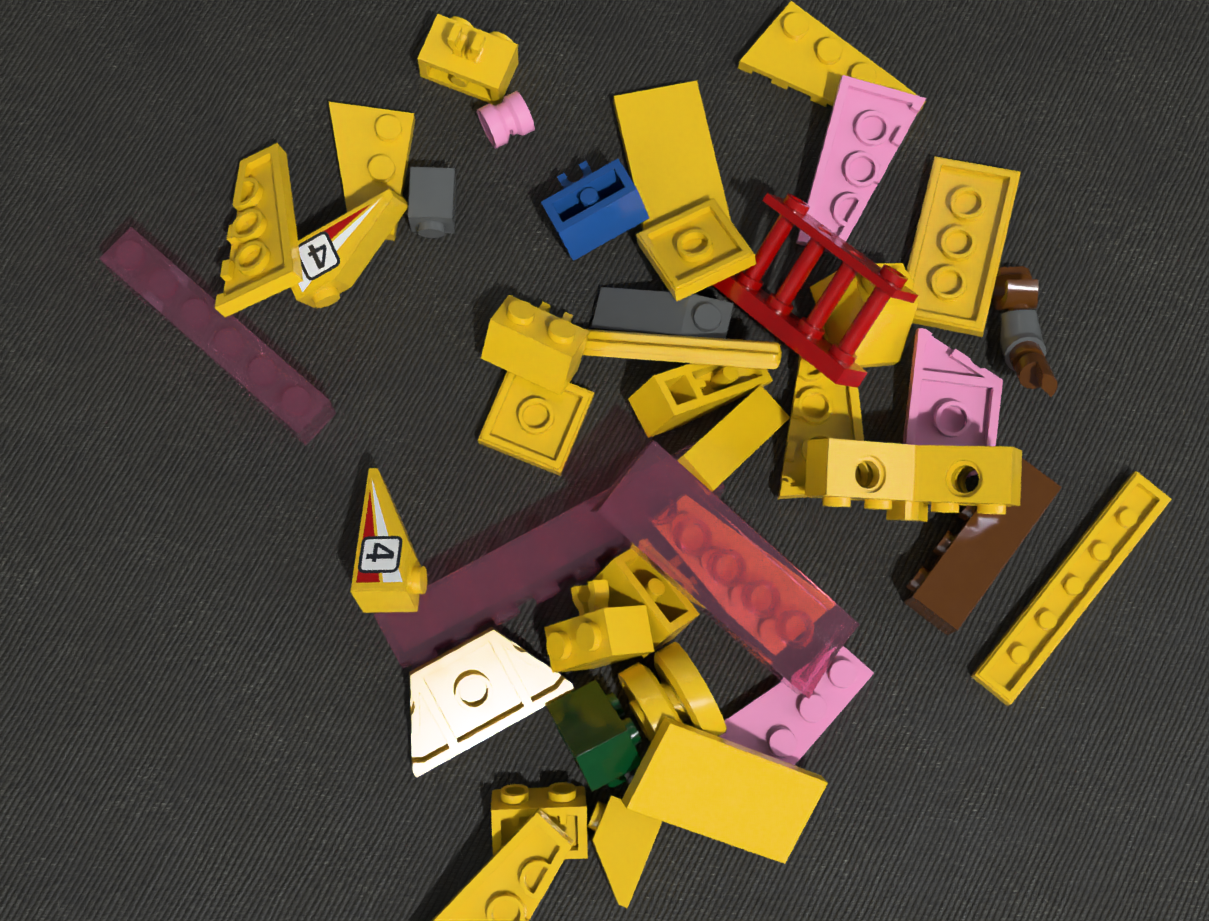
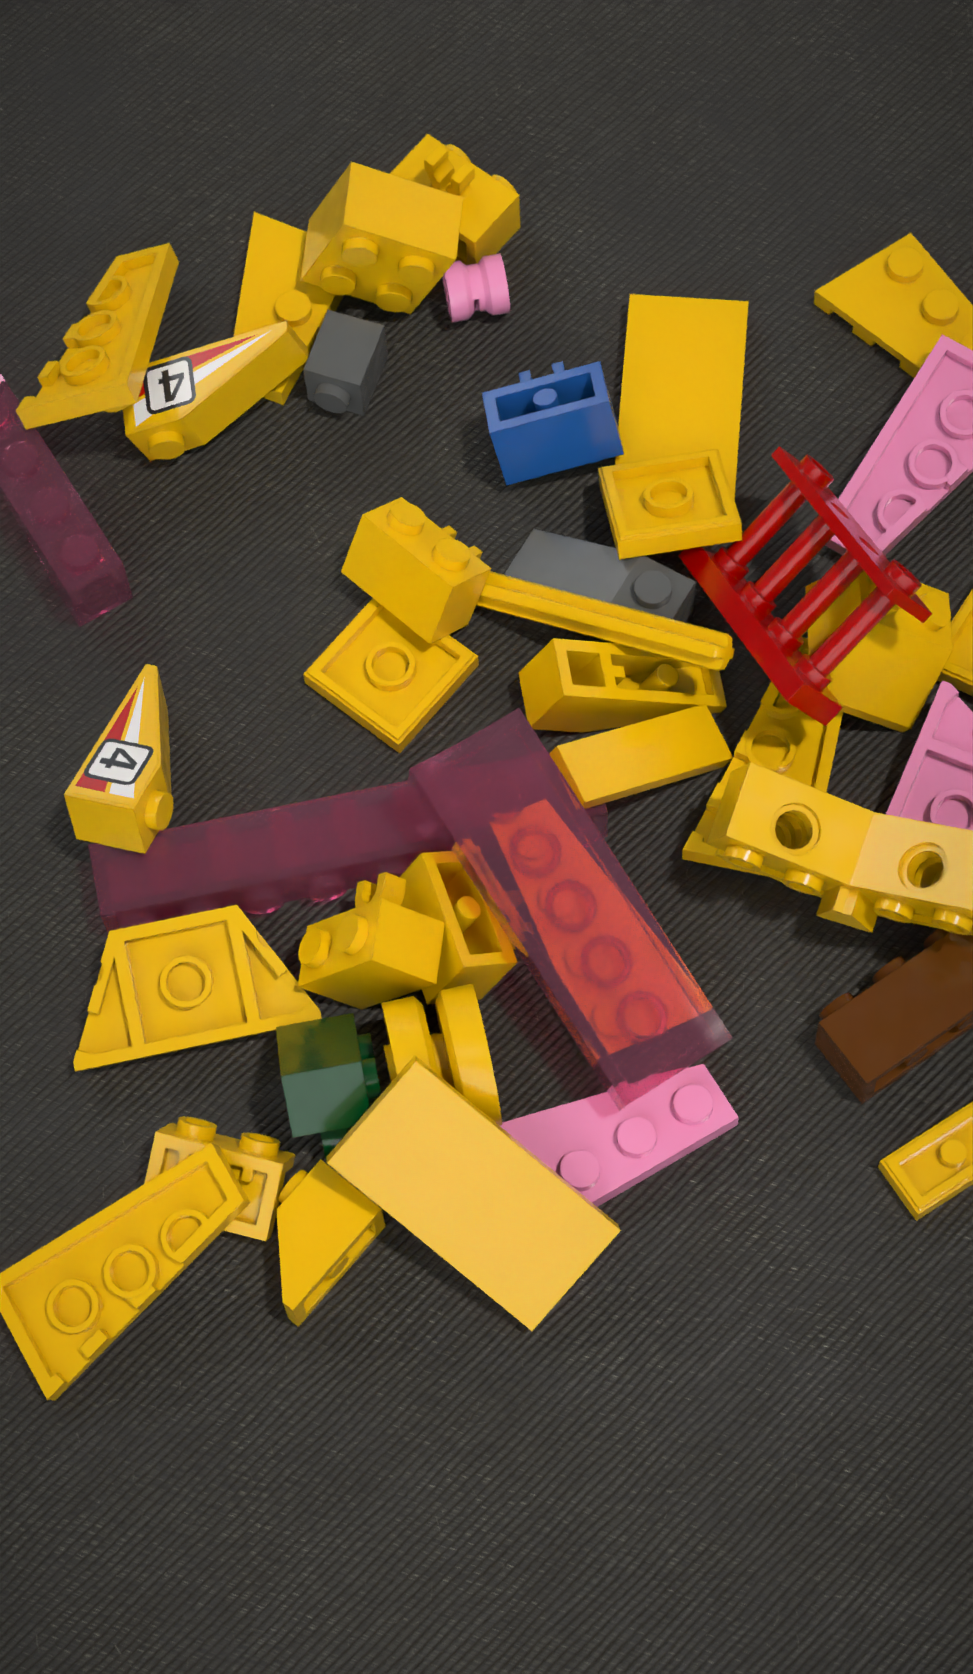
camera: 30 degrees right, 10 degrees down
(433, 104) = (381, 239): none -> yellow brick

